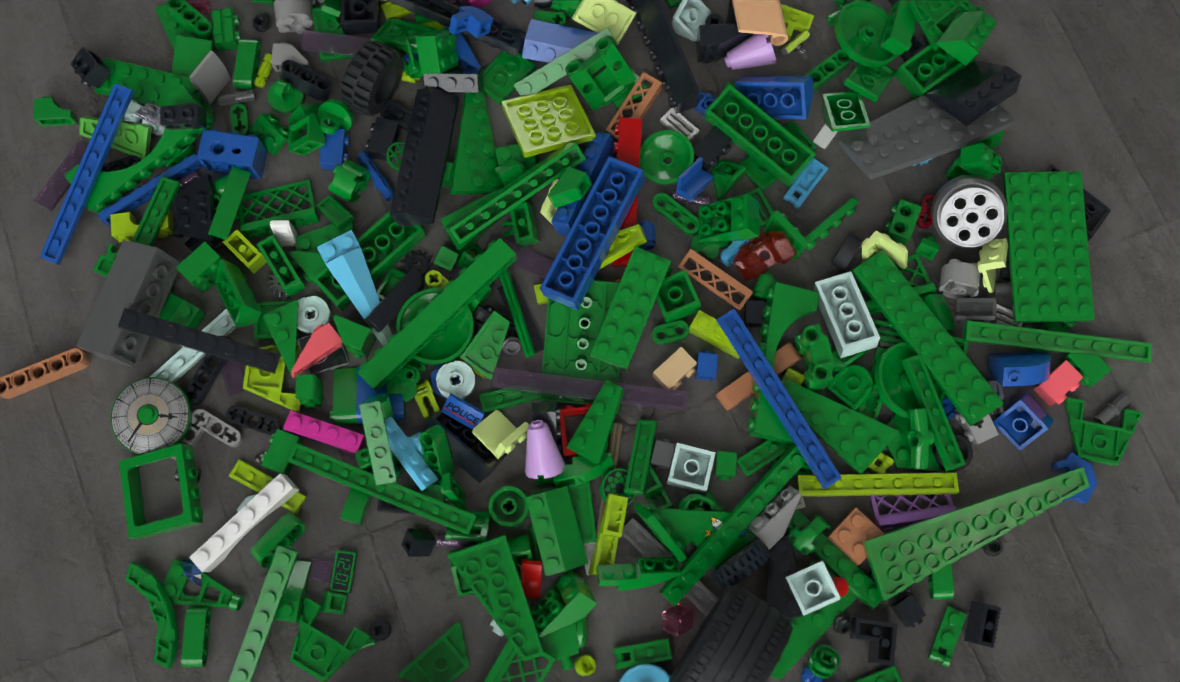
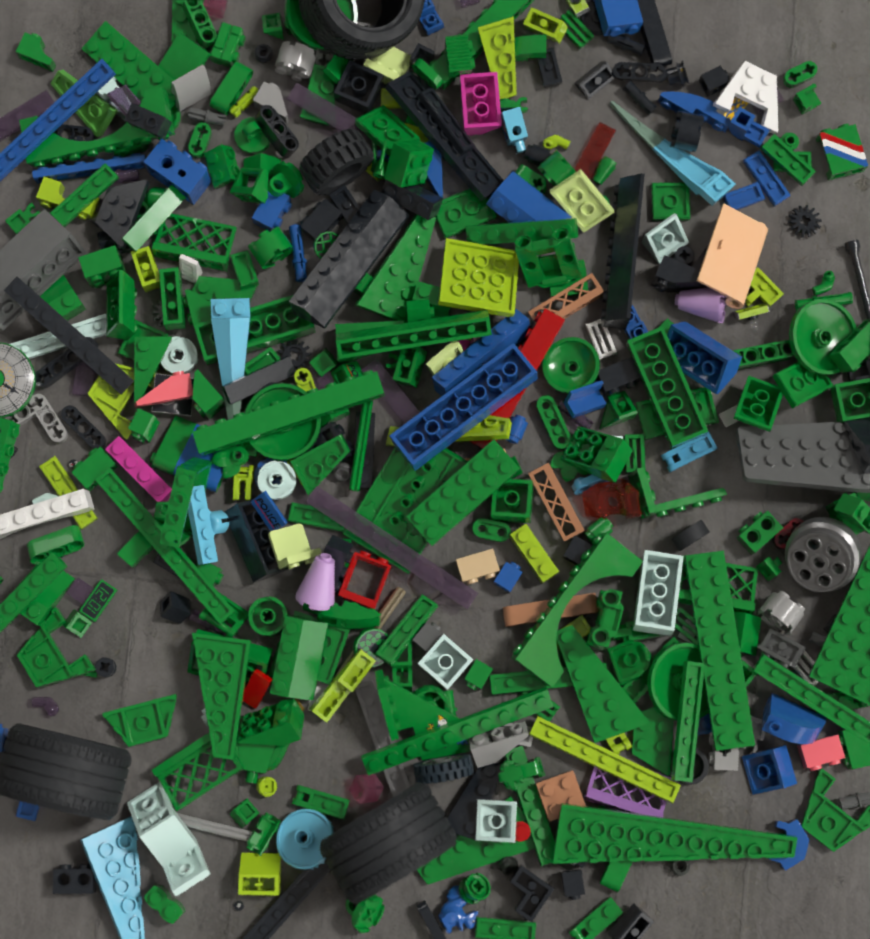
camera: 25 degrees right, 5 degrees up
(90, 68) = (88, 26): black brick -> none
(436, 452) = (228, 538): green beam -> none
(453, 491) = (226, 578): green plate -> none
(471, 19) = (454, 148): blue brick -> none
(569, 188) = (462, 355): green slope -> none
(593, 432) = (376, 585): green wing -> none
(639, 575) = (352, 733): green slope -> none
(779, 399) = (552, 640): blue plate -> none
(880, 241) = (723, 542): yellowish green bracket -> none
(919, 438) = (663, 737): green piece -> none
(991, 257) = (818, 611): yellowish green bracket -> none

